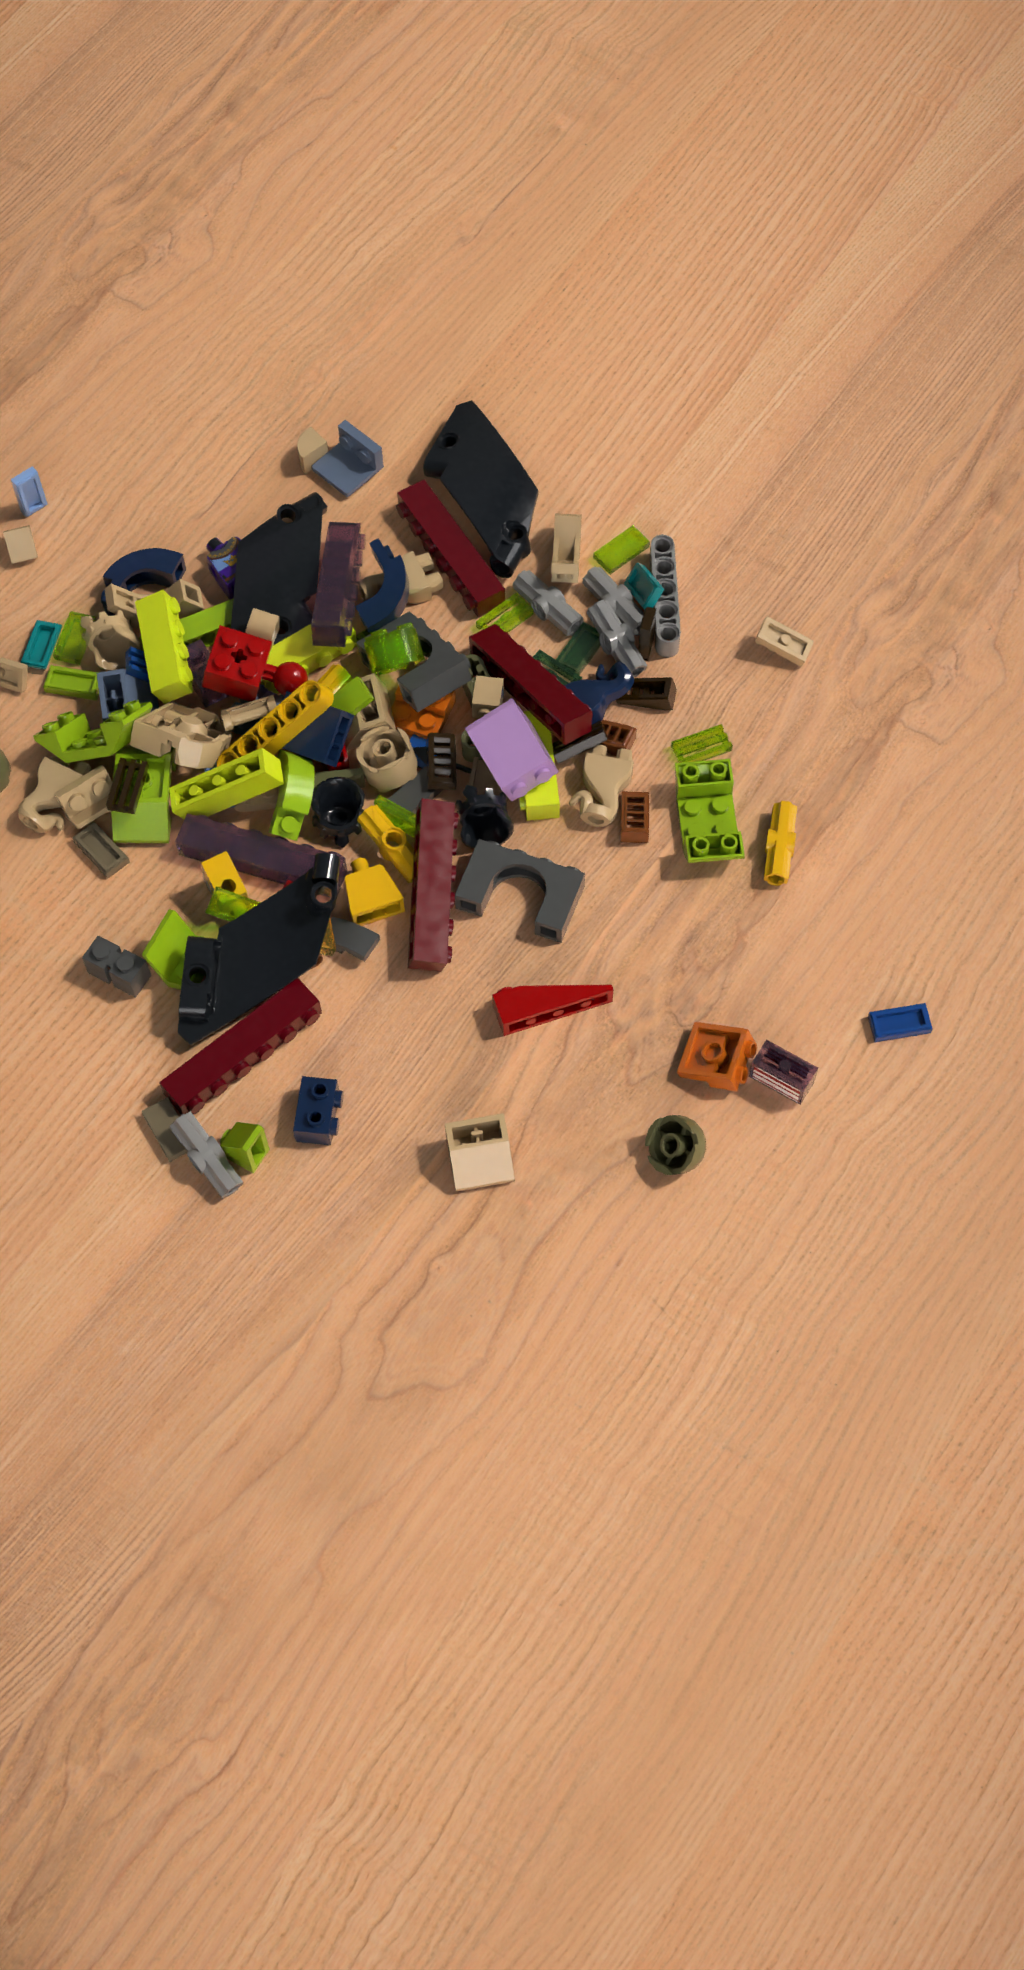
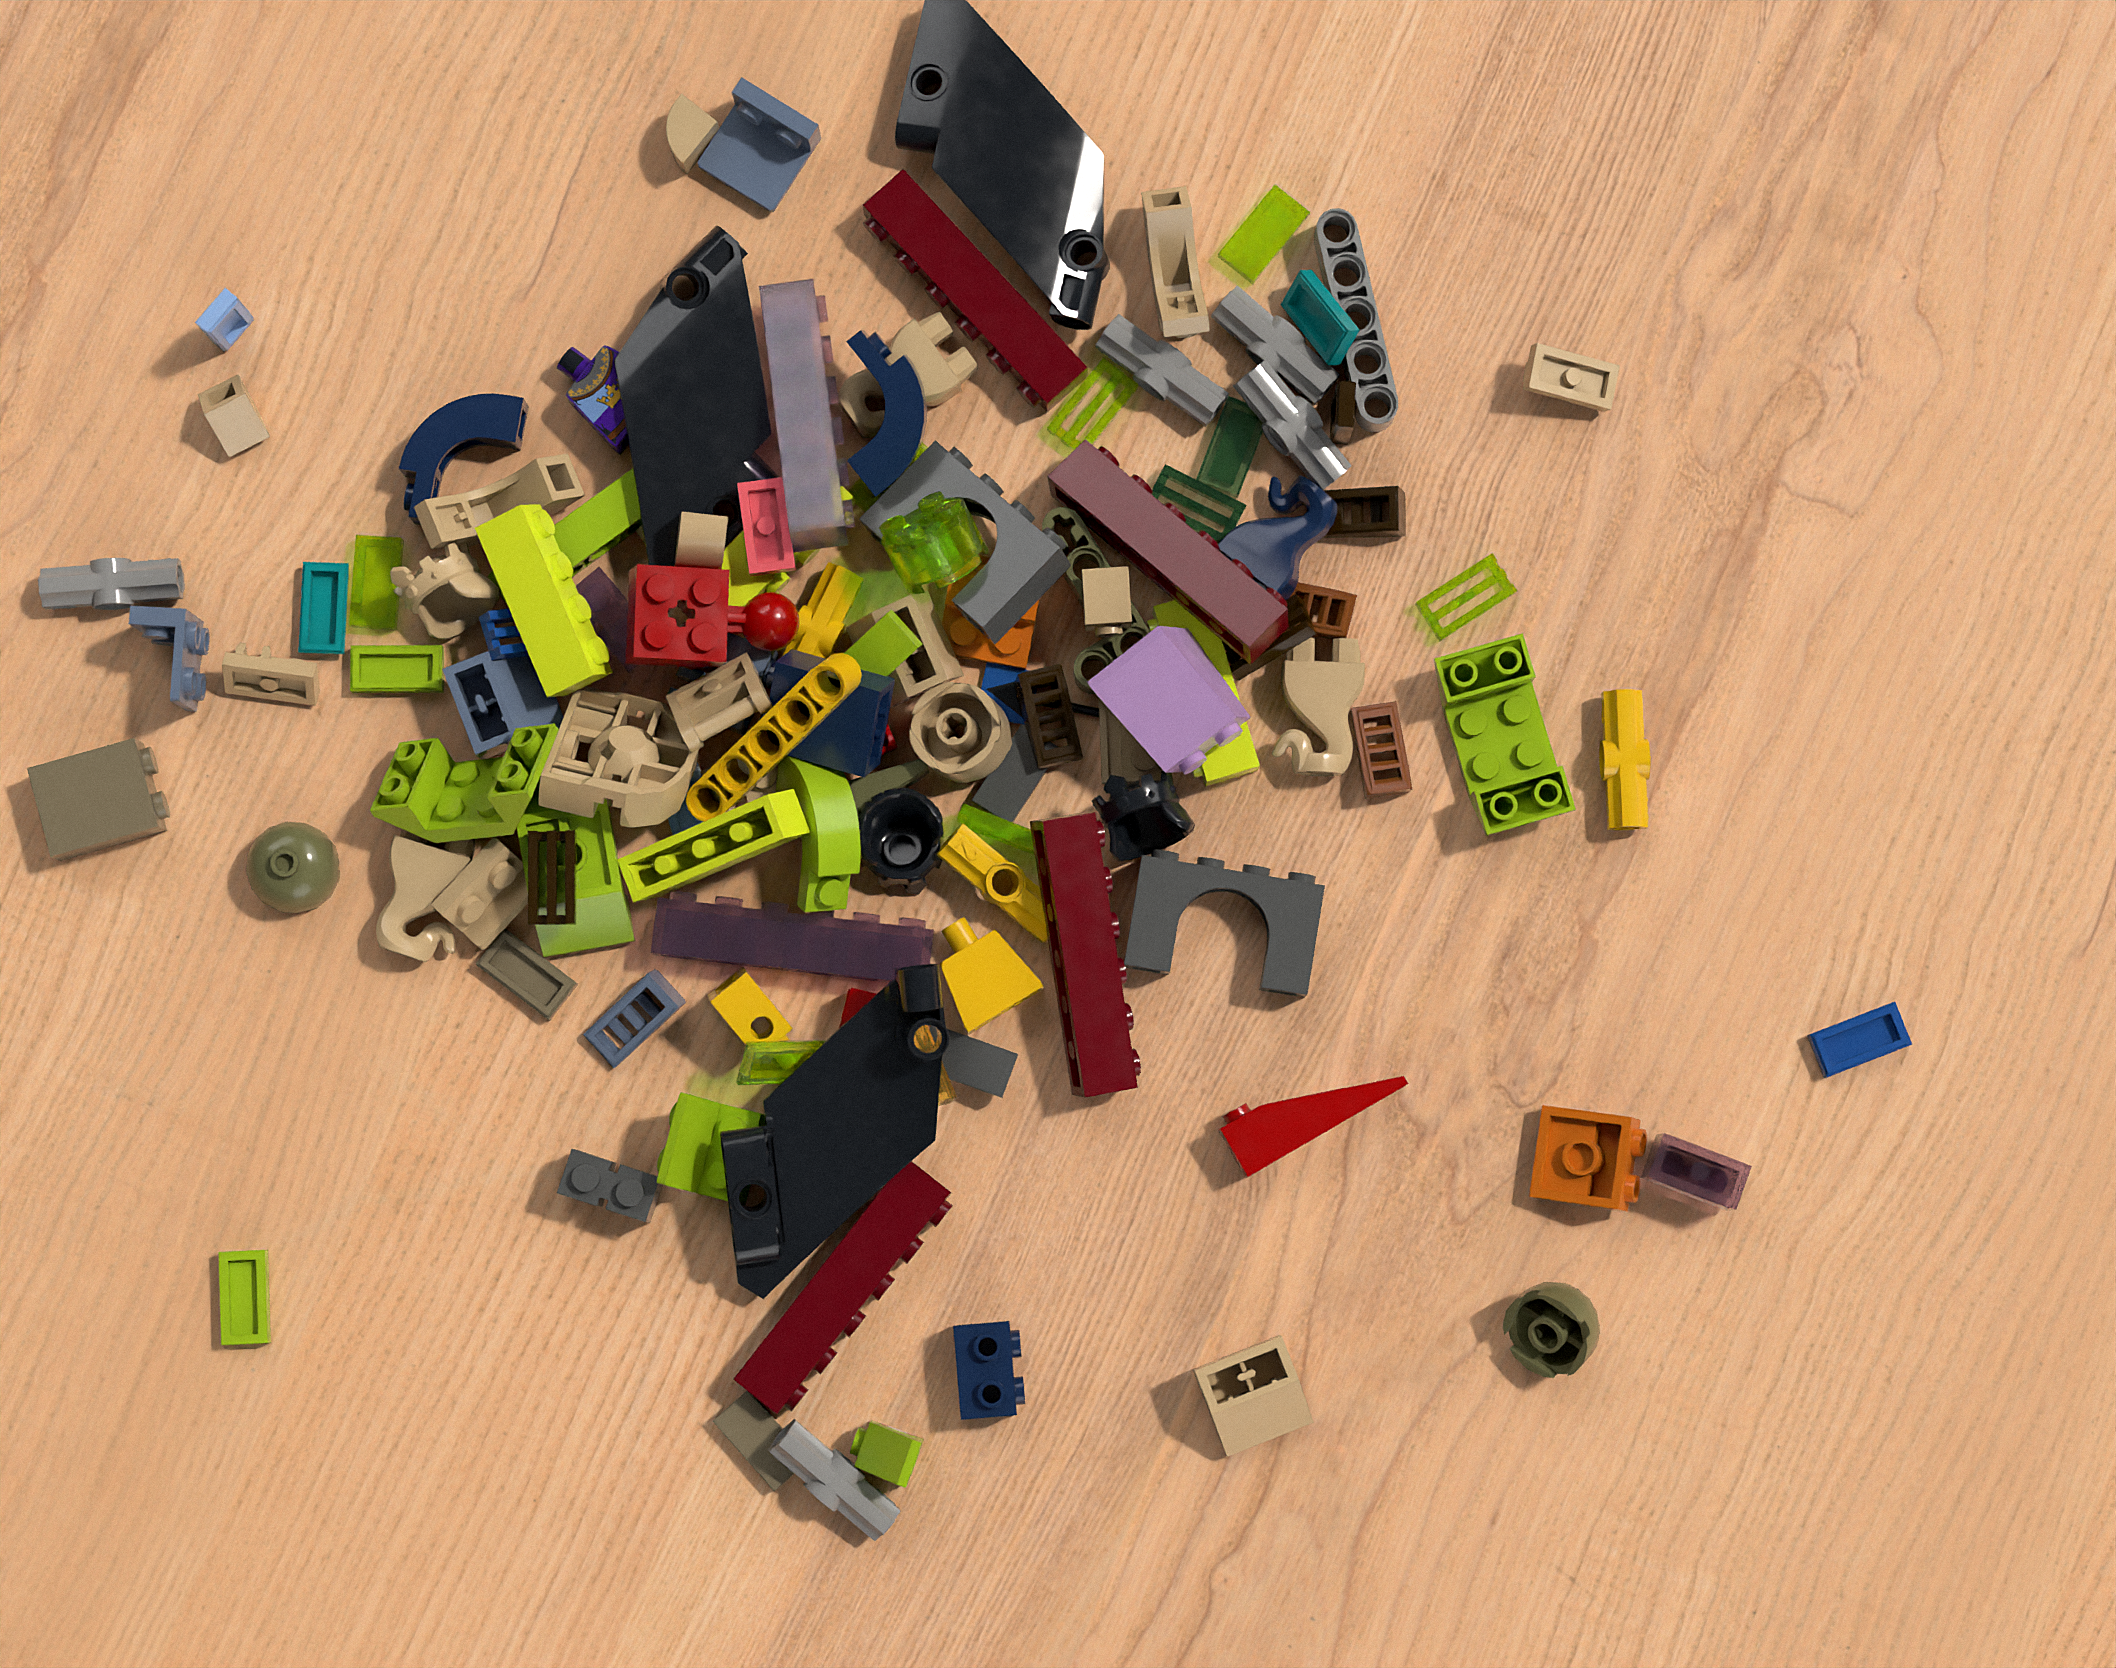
camera: 15 degrees left, 20 degrees up
(162, 890) = (662, 990): none -> sand blue slope
(299, 633) = (766, 527): none -> coral plate

